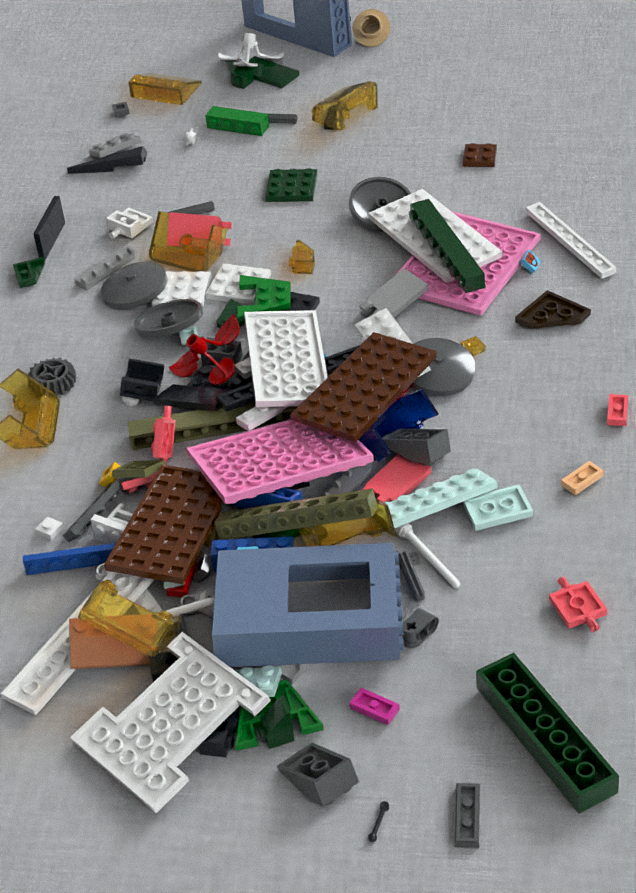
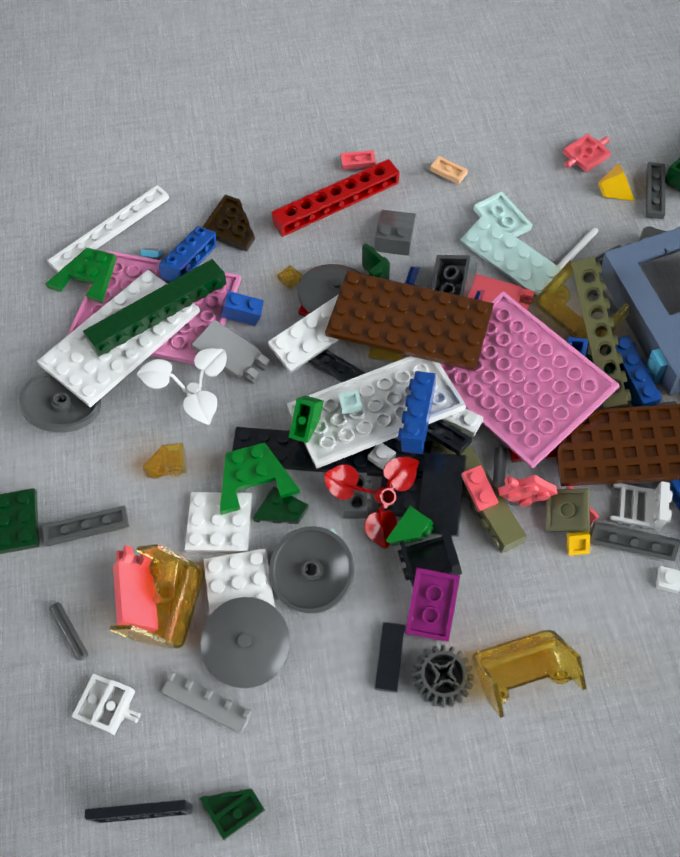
camera: 110 degrees left, 20 degrees up
(84, 357) = (389, 657): none -> black tile
(105, 375) = (432, 604): none -> magenta plate
(173, 374) = (411, 528): none -> green slope
(185, 408) = (479, 488): none -> coral plate
(192, 431) = (499, 471): none -> dark grey axle
(257, 363) = (418, 412): none -> blue brick
(267, 219) = (85, 526): none -> dark grey plate
(290, 308) = (305, 418): none -> green slope
(292, 335) = (350, 402): none -> light aqua plate
(378, 273) = (198, 403): none -> white plant
(436, 303) = (241, 308): none -> blue brick
(450, 392) = (375, 263): none -> dark green bracket
(493, 650) = (655, 190): none -> dark grey plate
(505, 421) = (394, 232): none -> dark grey slope
(511, 275) = (188, 254): none -> blue brick
(518, 619) = (616, 185): none -> yellow slope
(519, 223) = (89, 267): none -> green wing
(566, 387) = (335, 197): none -> red brick

